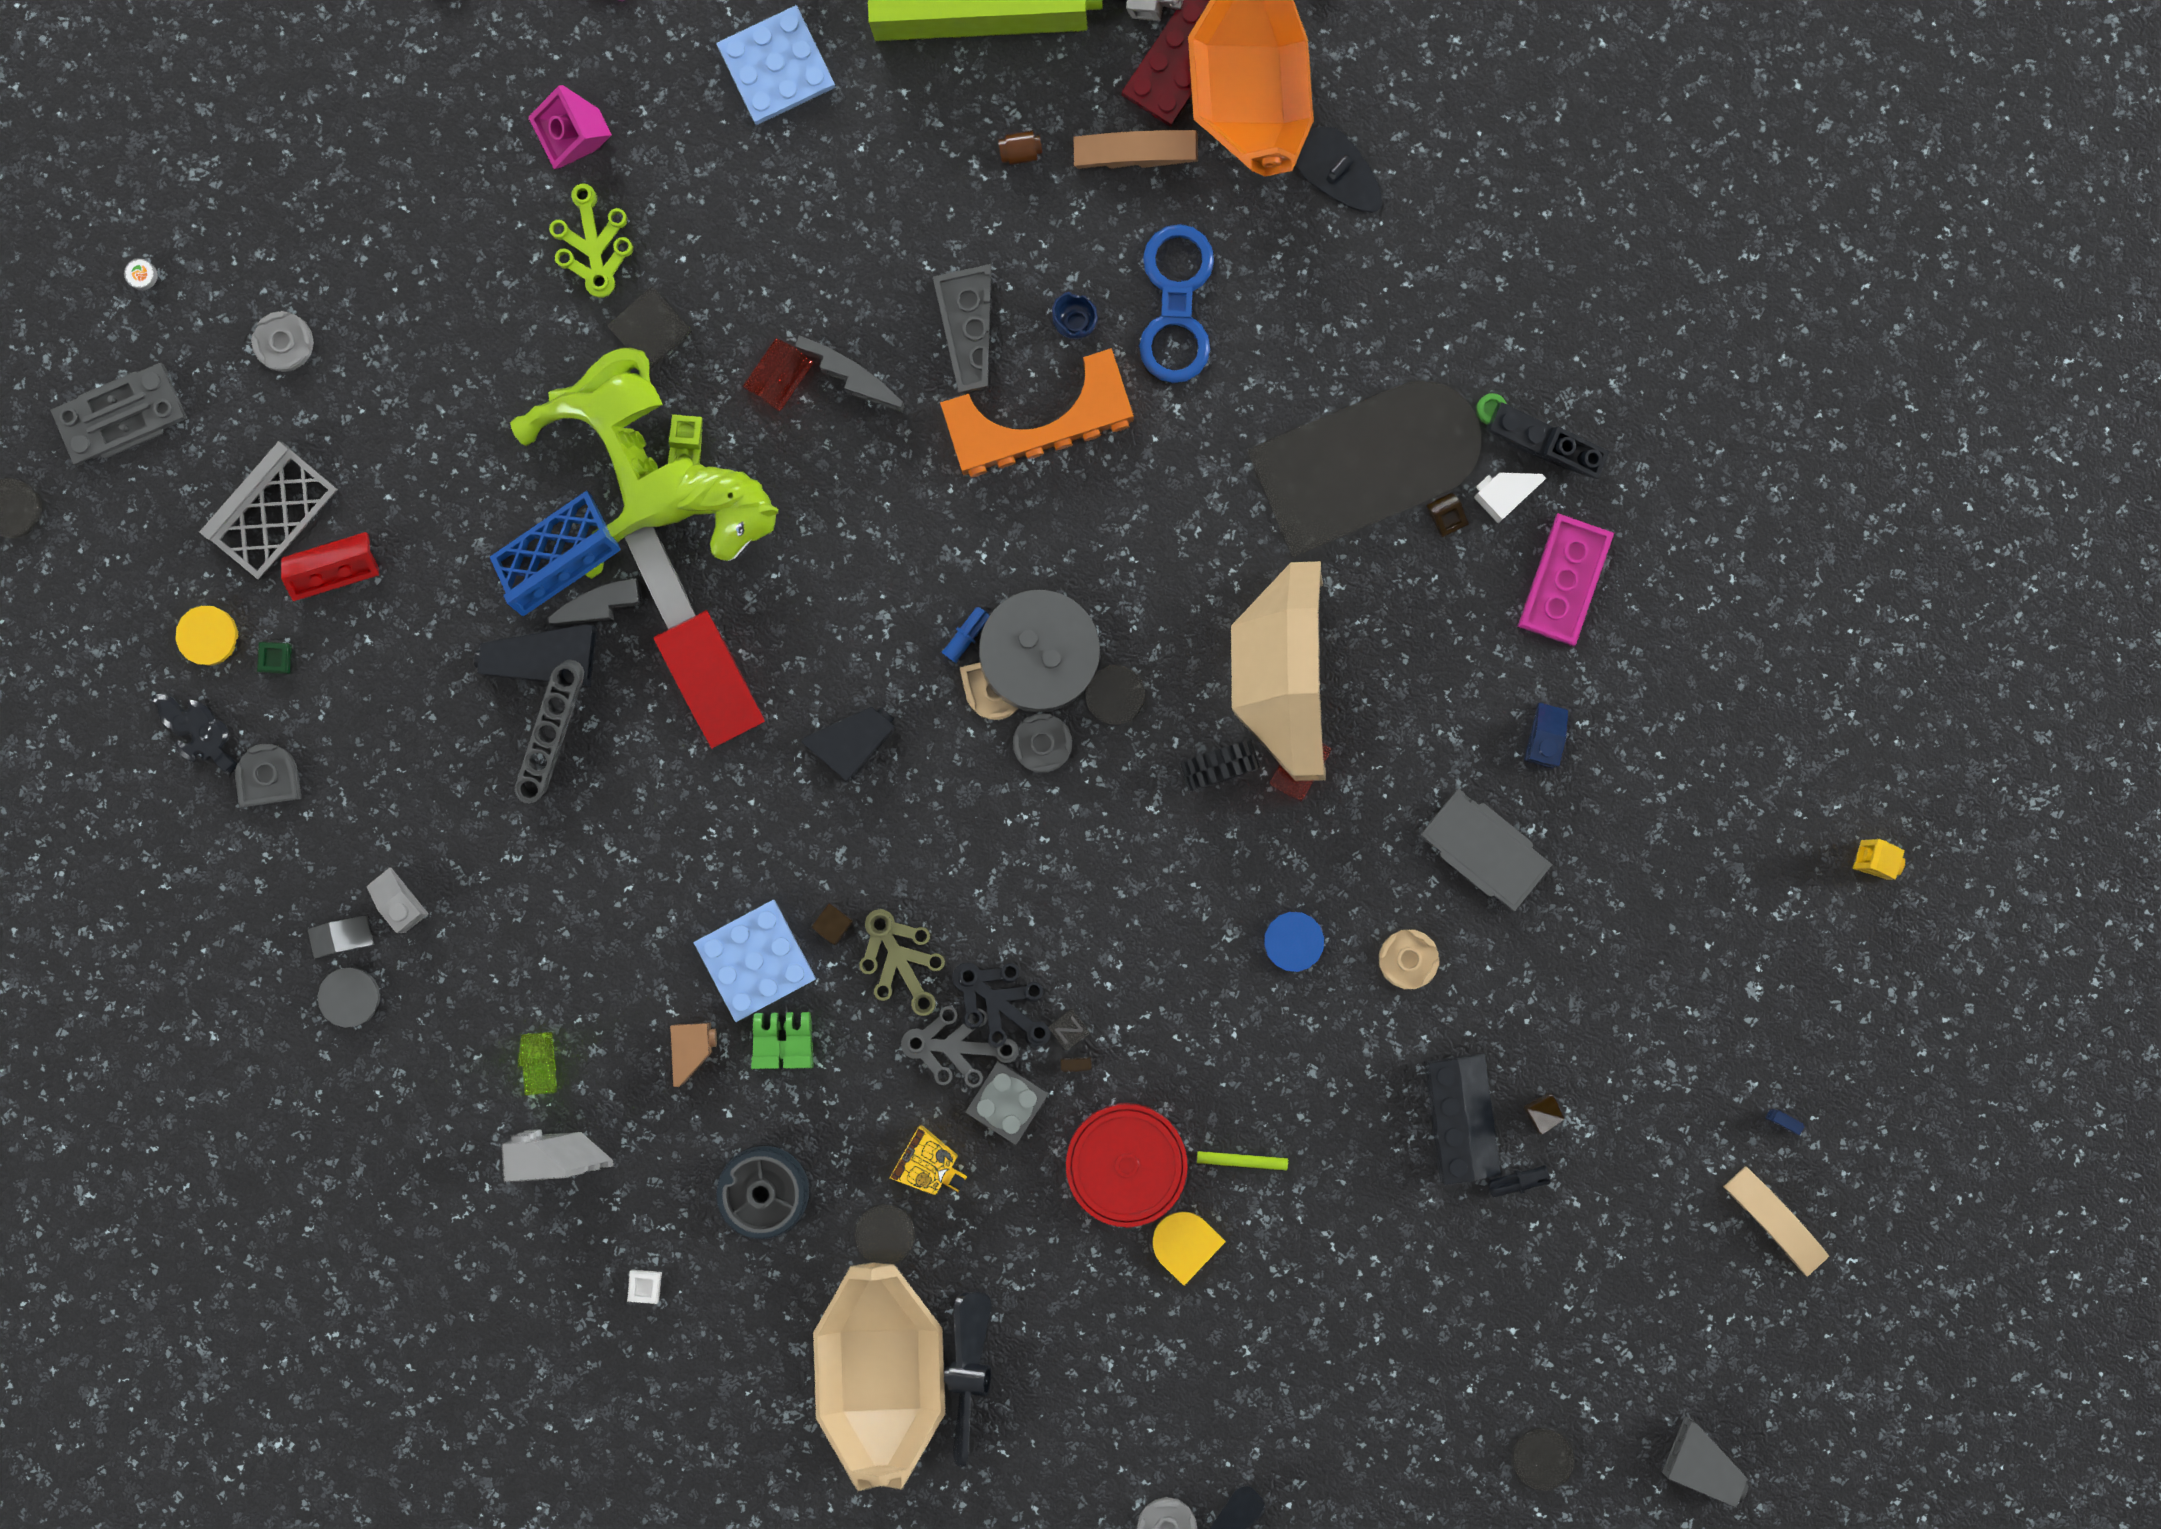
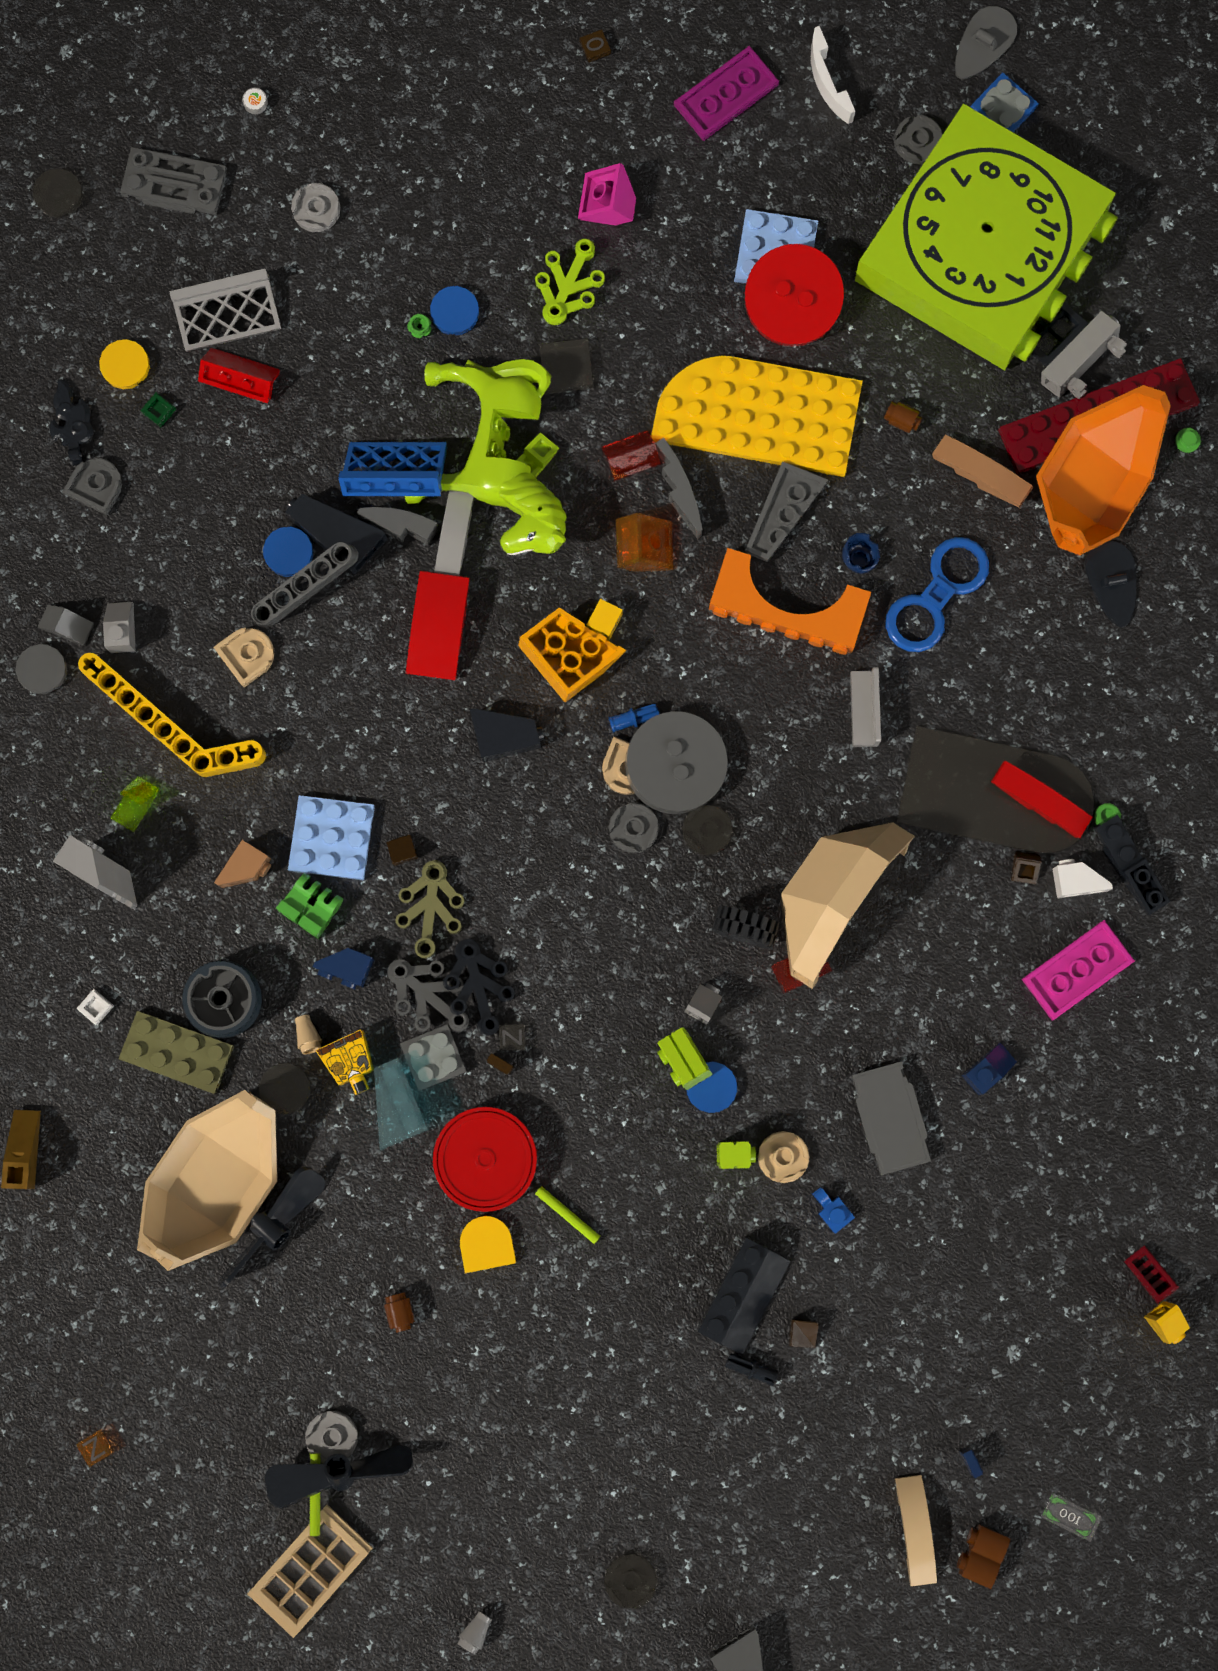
camera: 35 degrees right, 5 degrees down
(471, 383) = (416, 320): none -> bright green plate
(498, 350) = (454, 310): none -> blue tile
(503, 964) = (160, 720): none -> yellow beam
(507, 709) = (287, 551): none -> blue tile
(541, 839) = (246, 654): none -> tan tile
(675, 1474) = (21, 1151): none -> pearl gold slope
(754, 1274) = (176, 1052): none -> olive plate
(826, 99) = (794, 295): none -> red brick
(854, 454) = (644, 543): none -> clear orange slope
(857, 616) = (568, 652): none -> light orange wedge
(860, 1074) = (347, 965): none -> dark blue slope
(869, 560) = (605, 619): none -> yellow brick
(870, 1168) = (307, 1035): none -> tan cone
(876, 242) = (760, 413): none -> yellow plate
(1006, 1174) = (397, 1105): none -> clear light blue wedge
(1147, 1367) = (399, 1312): none -> reddish brown brick
(1185, 466) = (865, 708): none -> light grey panel
(1230, 866) = (704, 1003): none -> light grey slope
(1249, 933) = (684, 1058): none -> lime brick
(1363, 991) = (735, 1155): none -> lime brick
(1418, 438) = (1041, 799): none -> red slope
(1493, 978) = (834, 1212): none -> blue plate
(1856, 1200) = (983, 1555): none -> reddish brown brick
(1858, 831) = (1165, 1277): none -> dark red slope
(1912, 1105) = (1071, 1517): none -> clear tile

